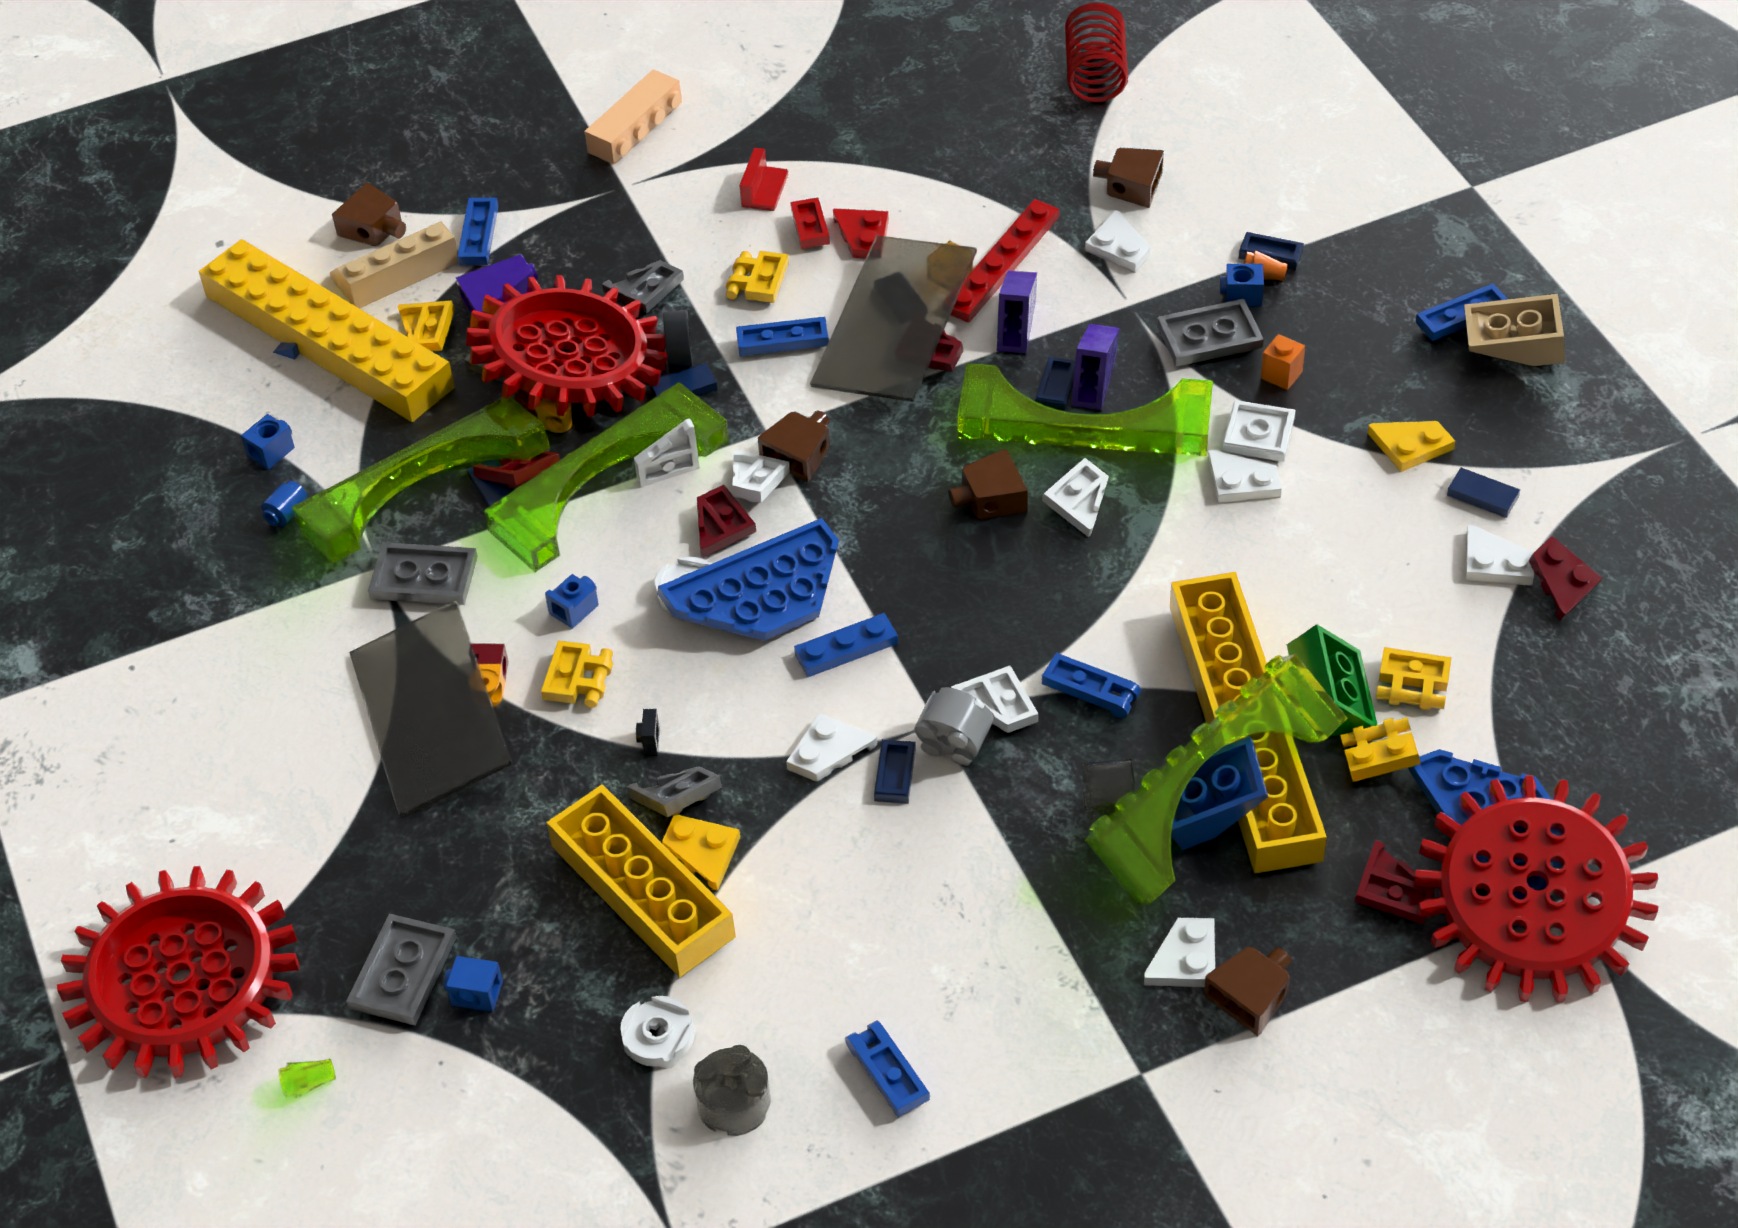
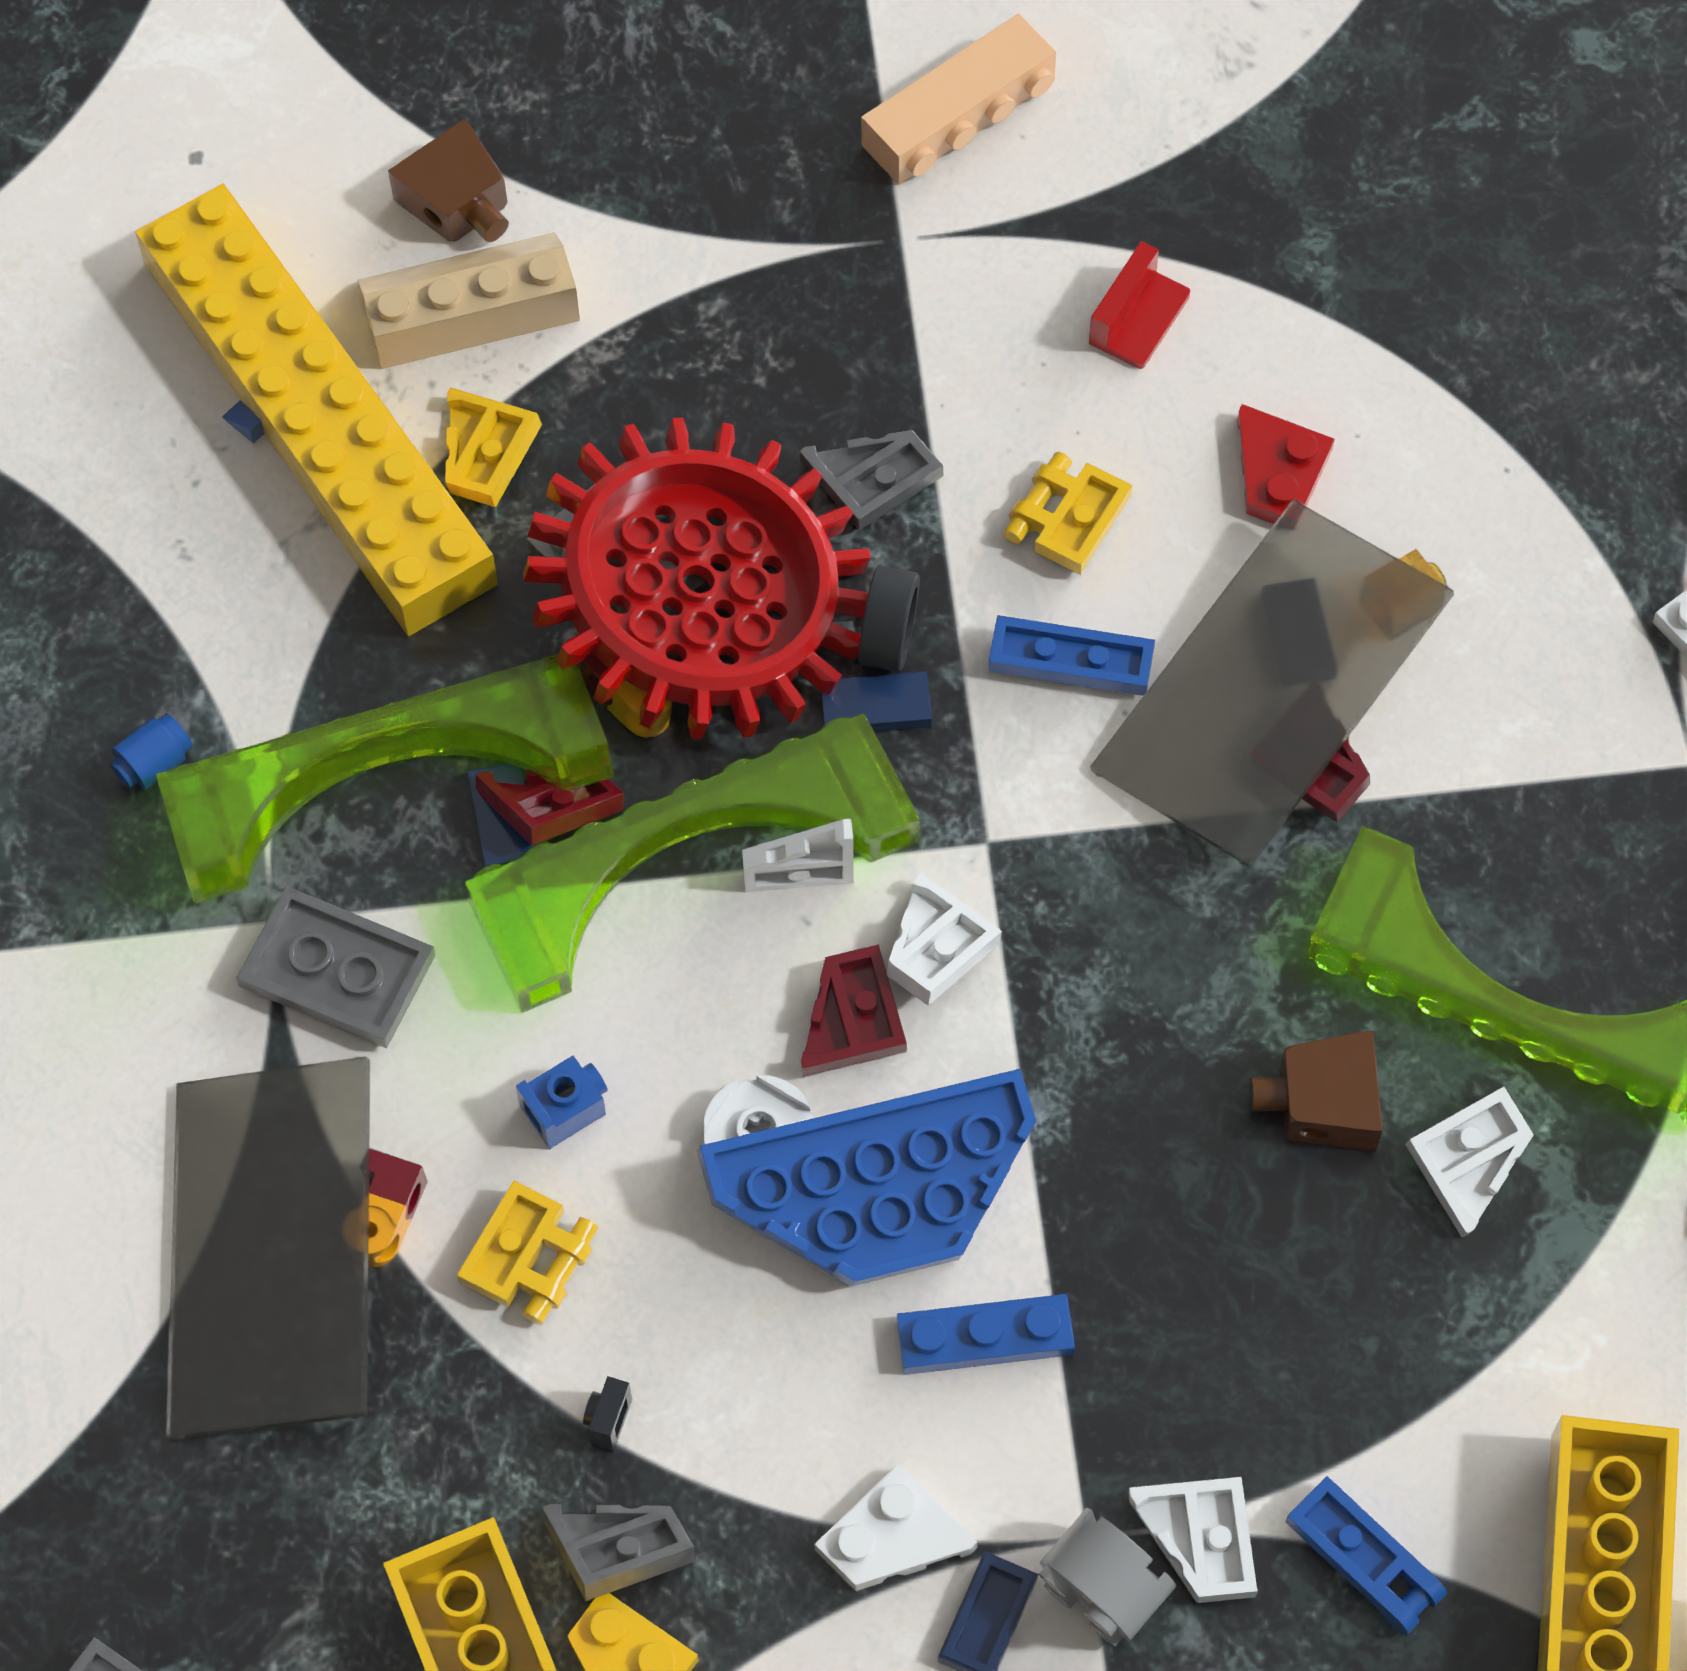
camera: 15 degrees right, 15 degrees up
(268, 441) = (160, 633): blue brick -> none
(478, 231) = (625, 270): blue plate -> none
(491, 279) = (607, 397): dark purple slope -> none
(798, 441) = (1028, 894): reddish brown torso -> none
(810, 223) = (1192, 423): red plate -> none
(1004, 256) = (1507, 598): red plate -> none
(1016, 311) = (1487, 729): dark purple slope -> none
(1056, 383) = (1510, 899): dark blue tile -> none
(1094, 366) = (1585, 890): dark purple slope -> none

